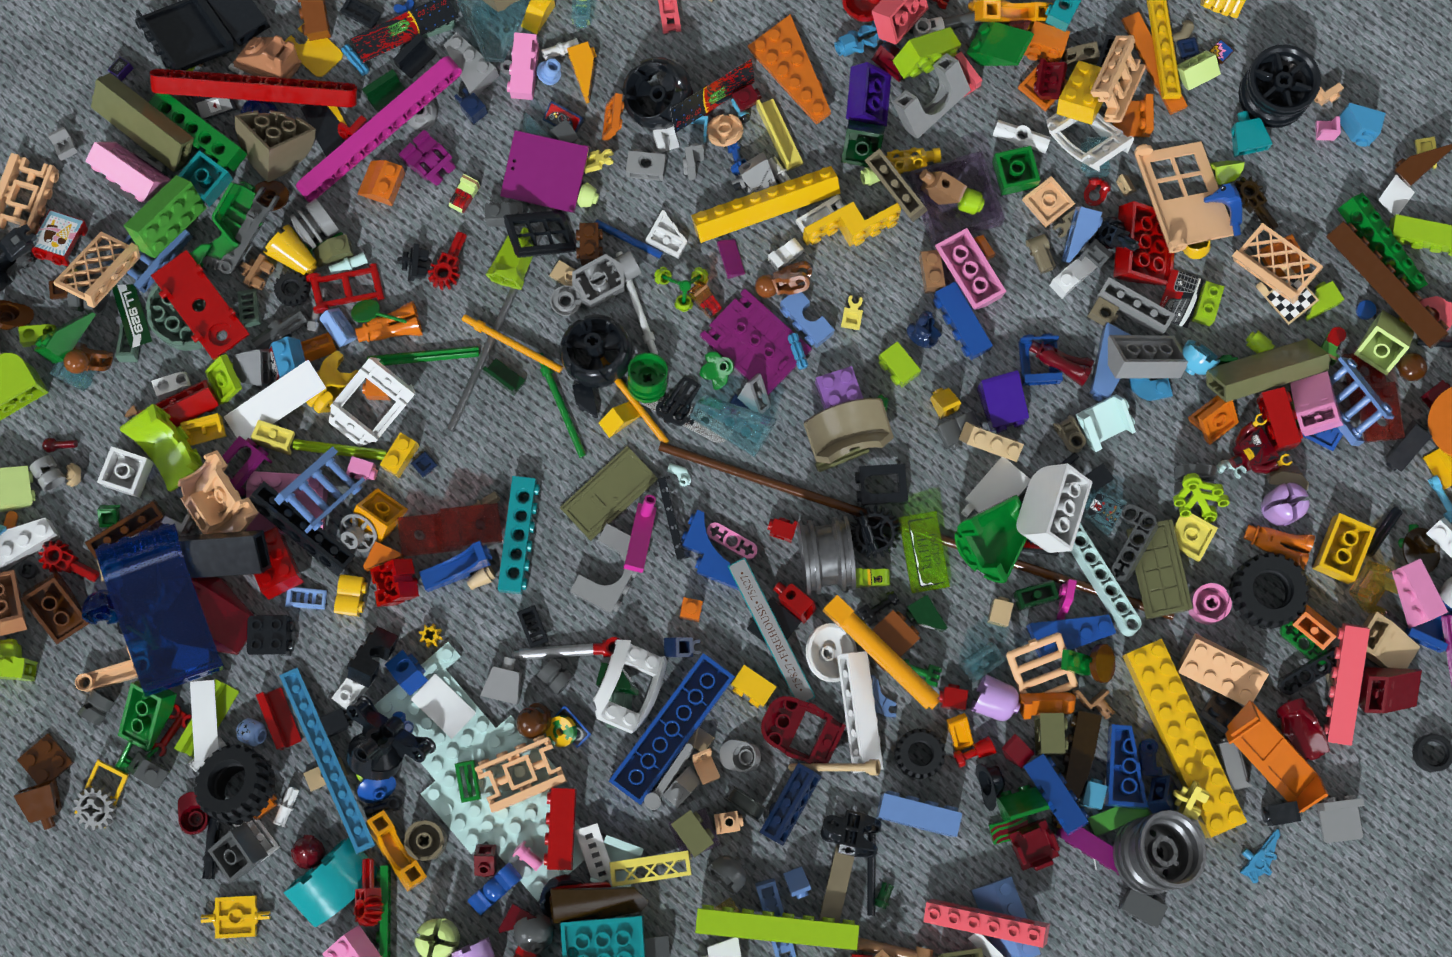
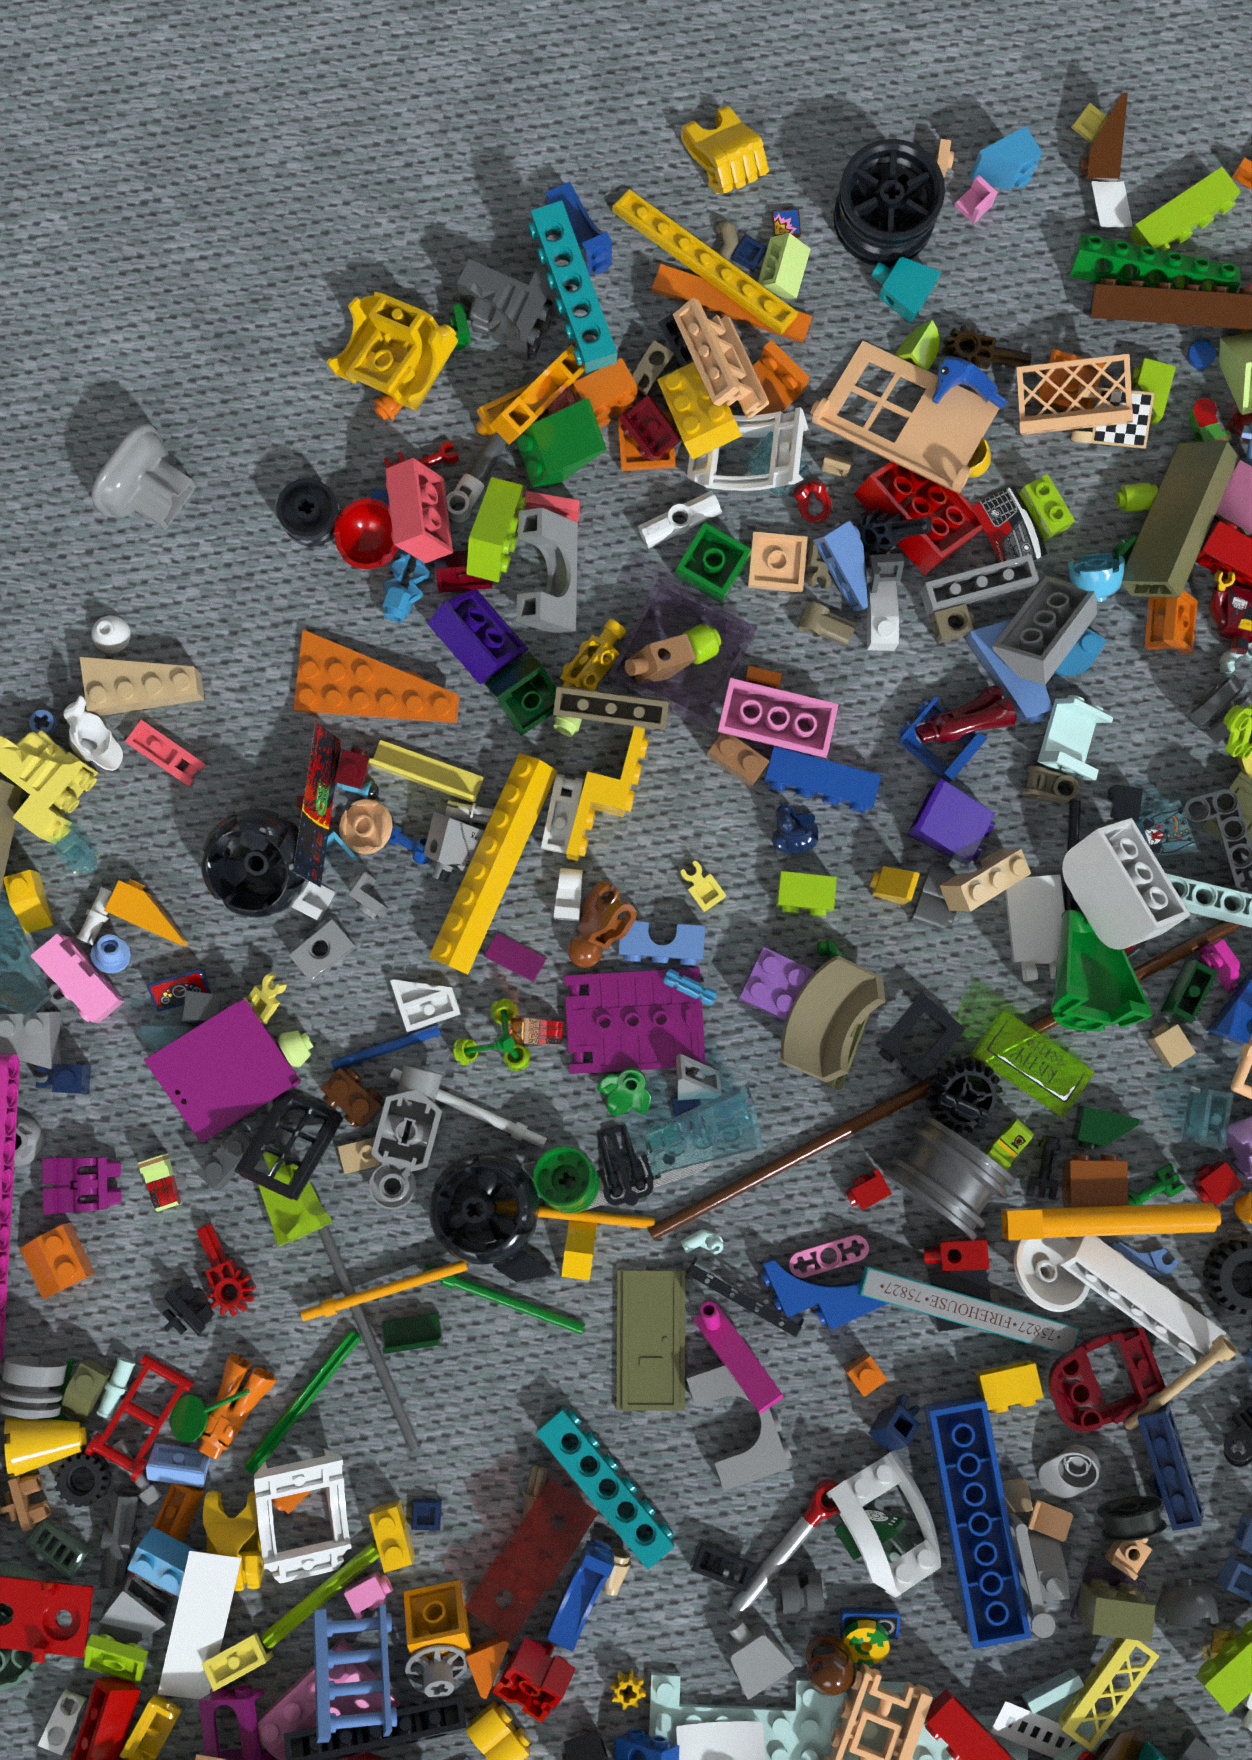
camera: 50 degrees left, 5 degrees up
(612, 120) = (239, 943): orange plate -> none

